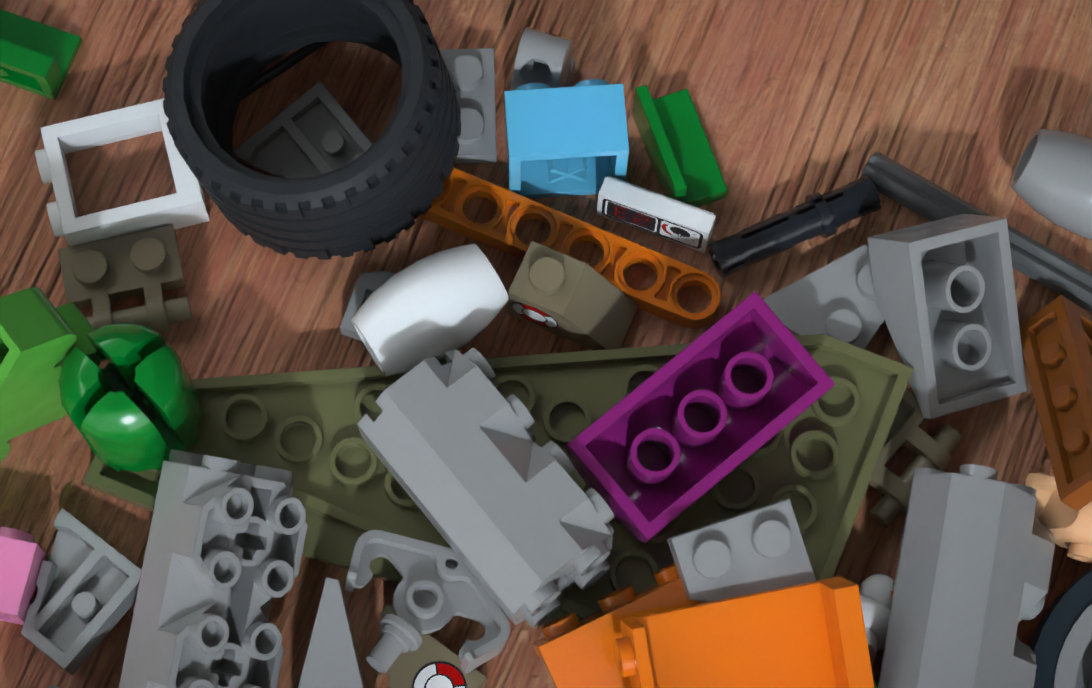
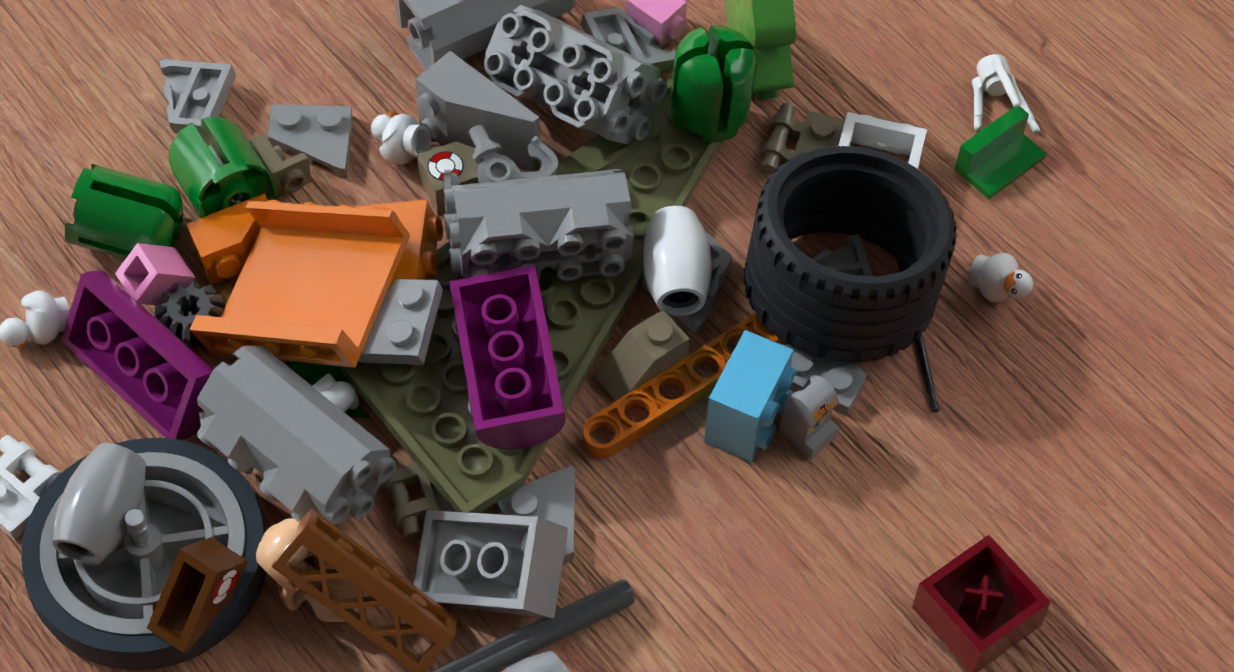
camera: 120 degrees right, 15 degrees down
(655, 213) = (670, 438): white tile -> none
(678, 147) = (712, 474): green panel -> none
(782, 231) = (611, 534): black pin -> none

